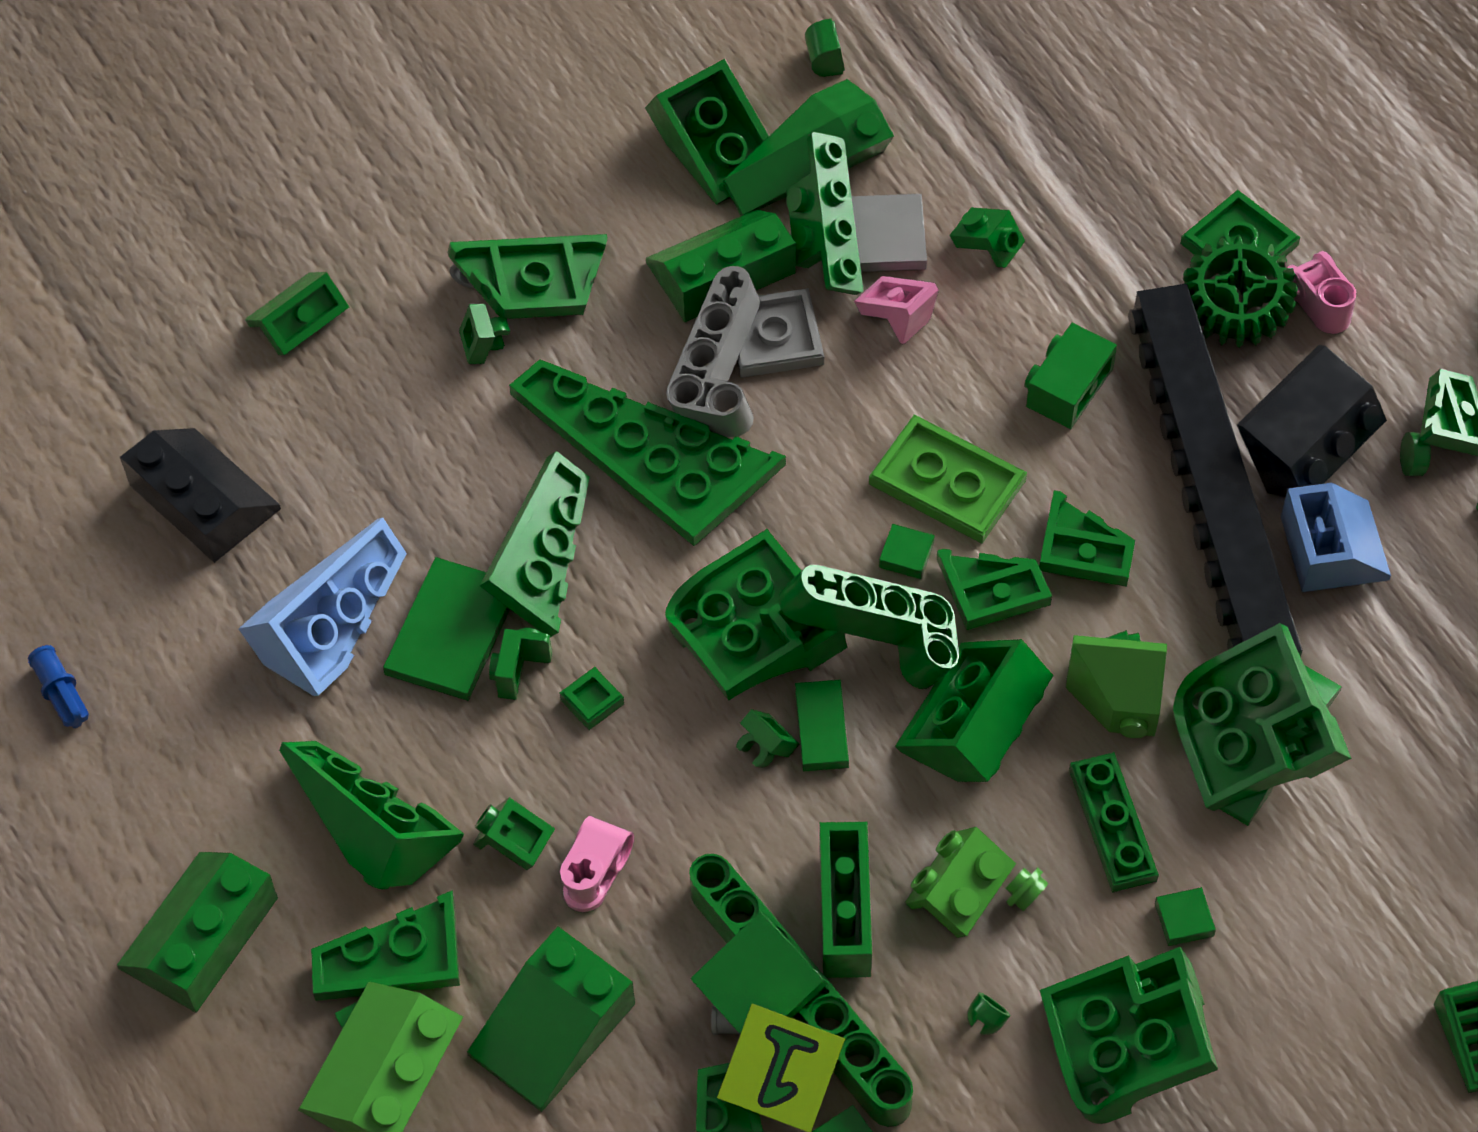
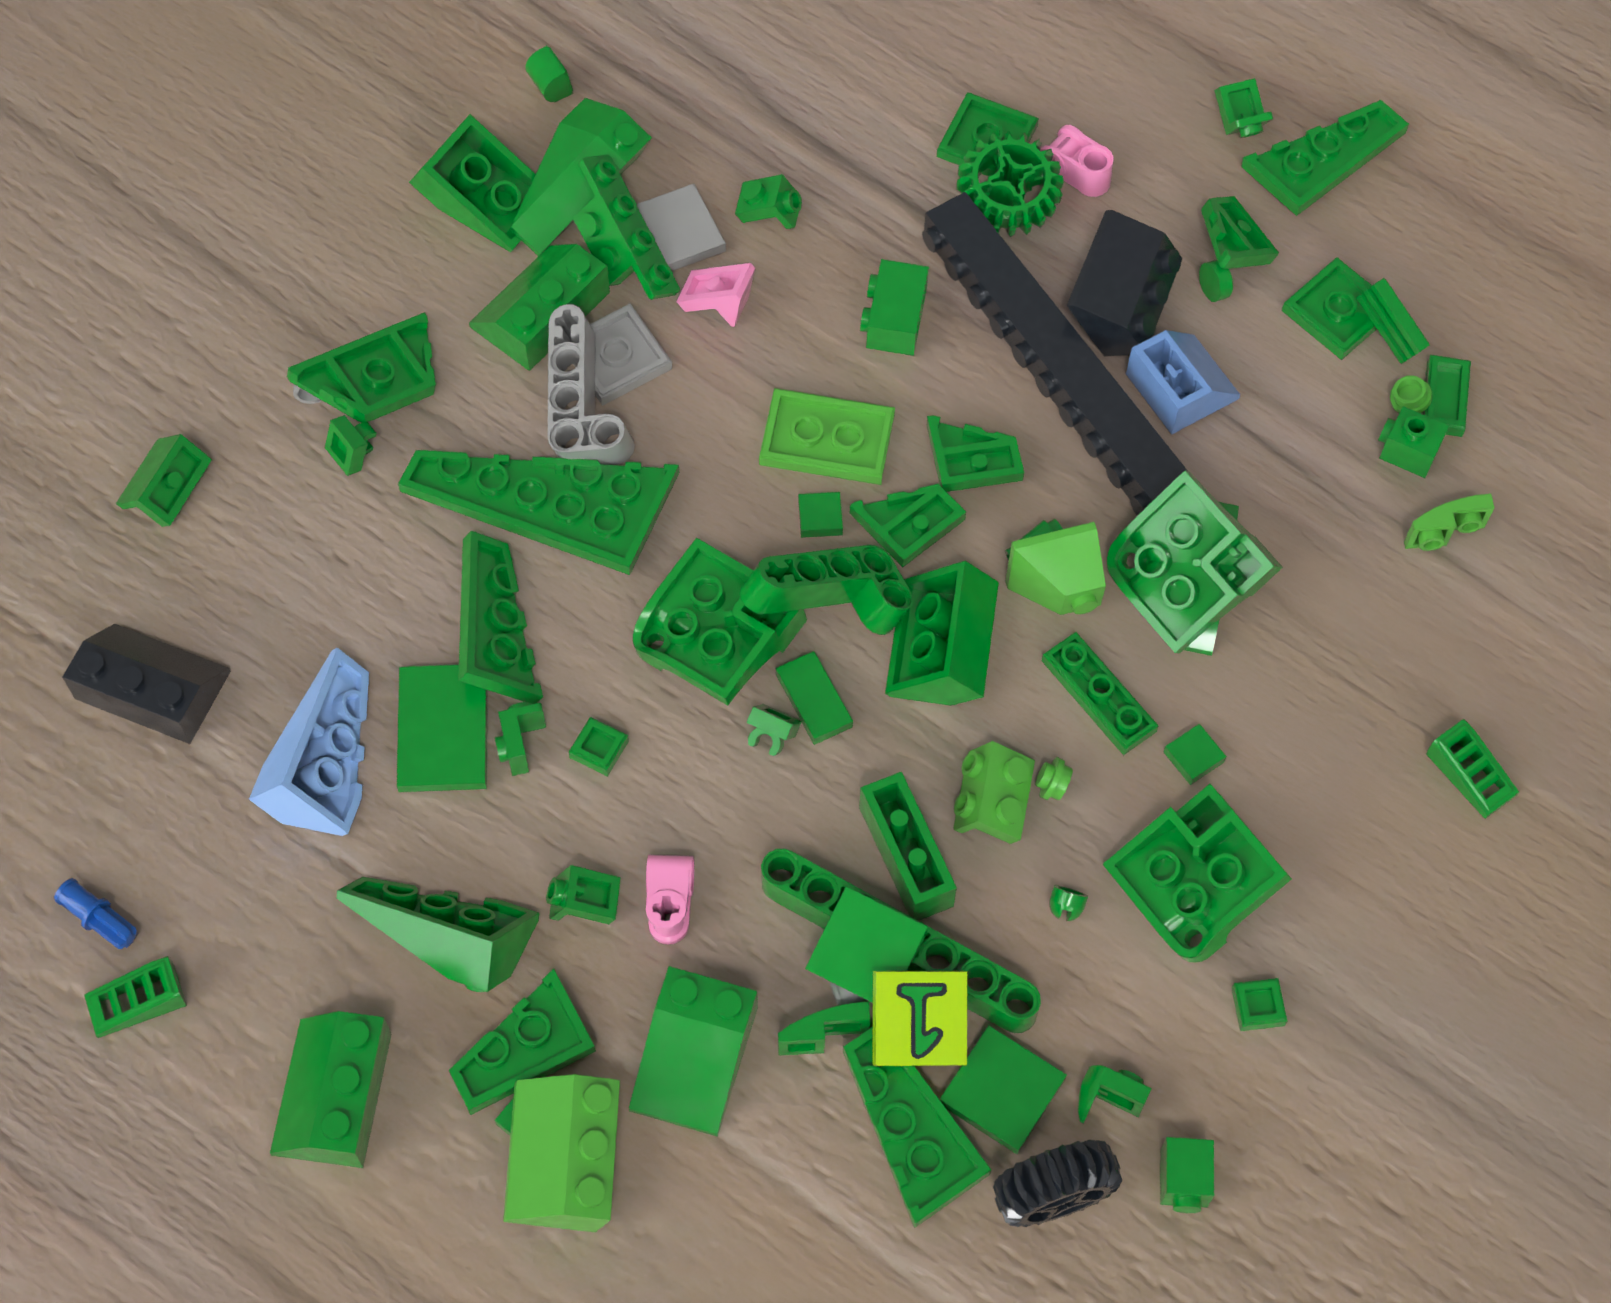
camera: 25 degrees left, 5 degrees up
(75, 789) = (155, 1006): none -> green slope
(672, 1043) = (809, 1033): none -> green slope

